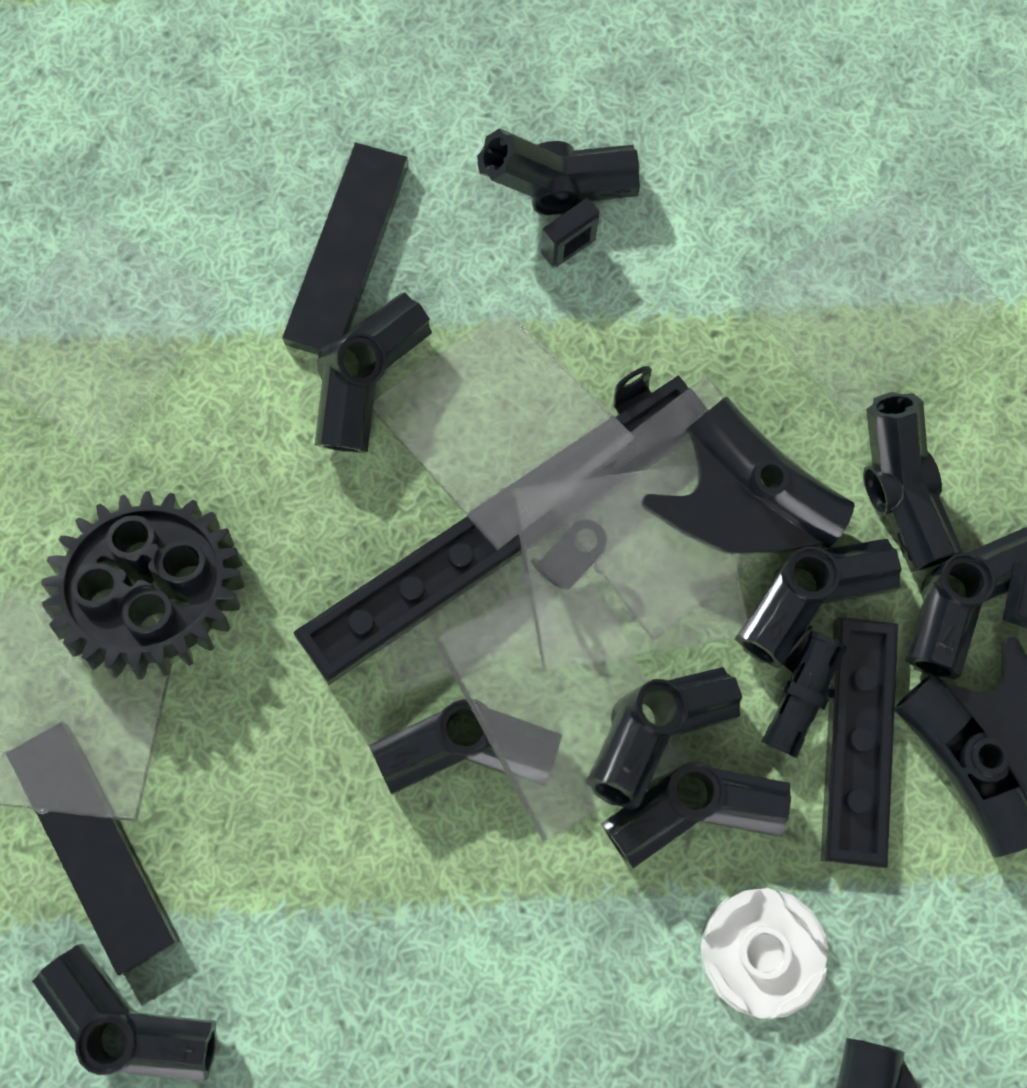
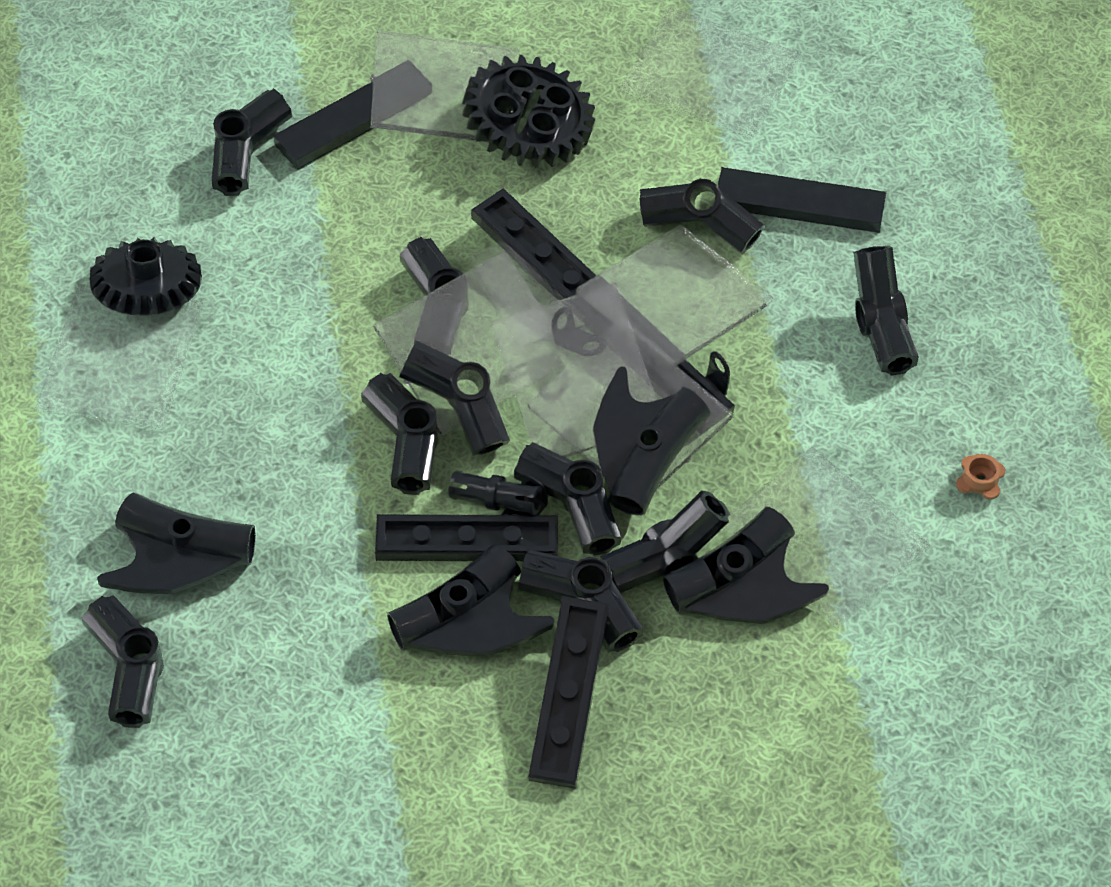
camera: 85 degrees right, 20 degrees down
(570, 233) = (836, 325): black tile -> none
(738, 948) = (310, 500): white tile -> none
(808, 98) = (985, 466): none -> nougat plate
(960, 395) = (744, 576): none -> black pin

